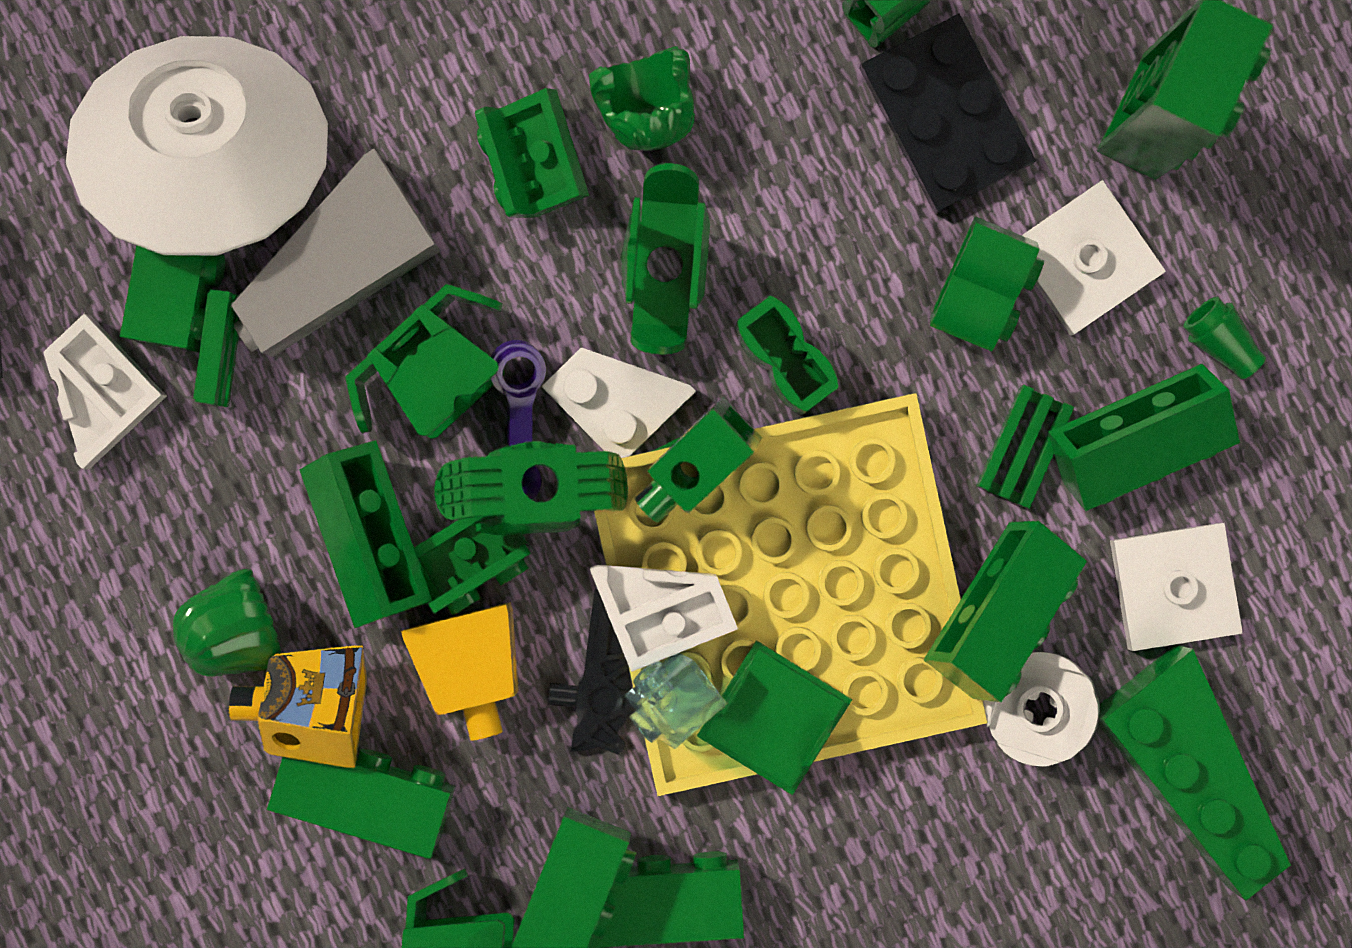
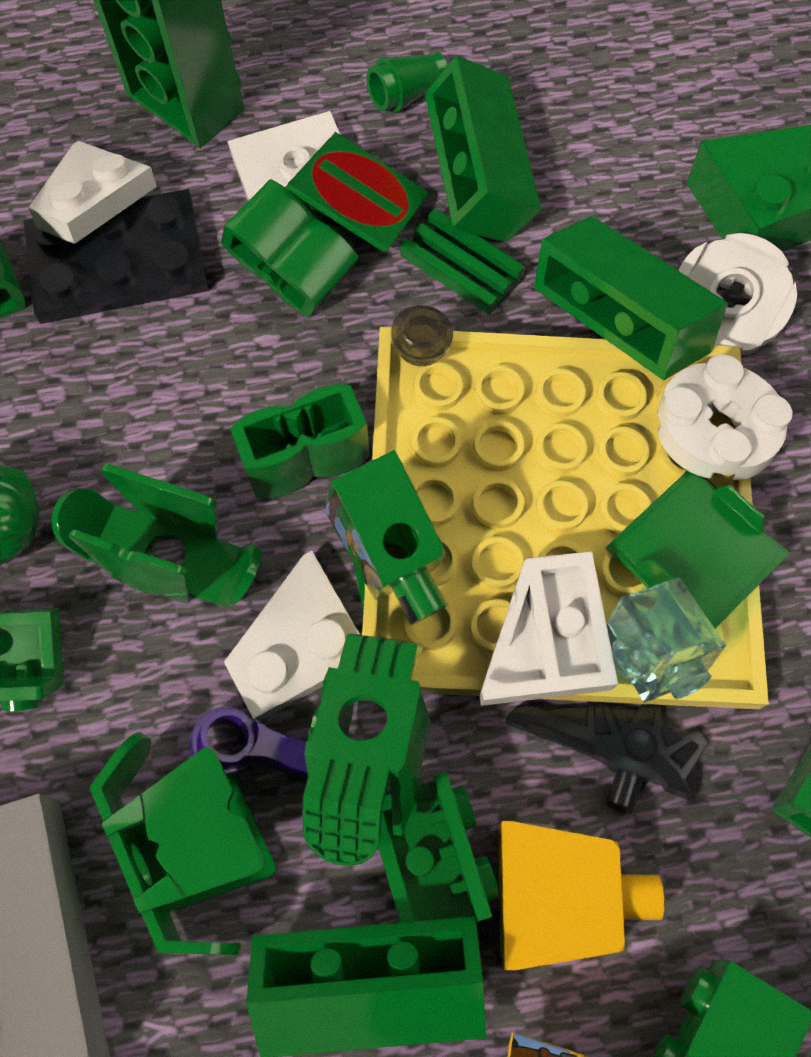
camera: 70 degrees left, 20 degrees down
(910, 435) = (421, 335): none -> clear smoke plate
(930, 711) = (741, 395): none -> white plate
(1001, 68) = (88, 191): none -> white wing
(1062, 332) = (358, 191): none -> piece
(1176, 586) = (631, 168): white plate -> none

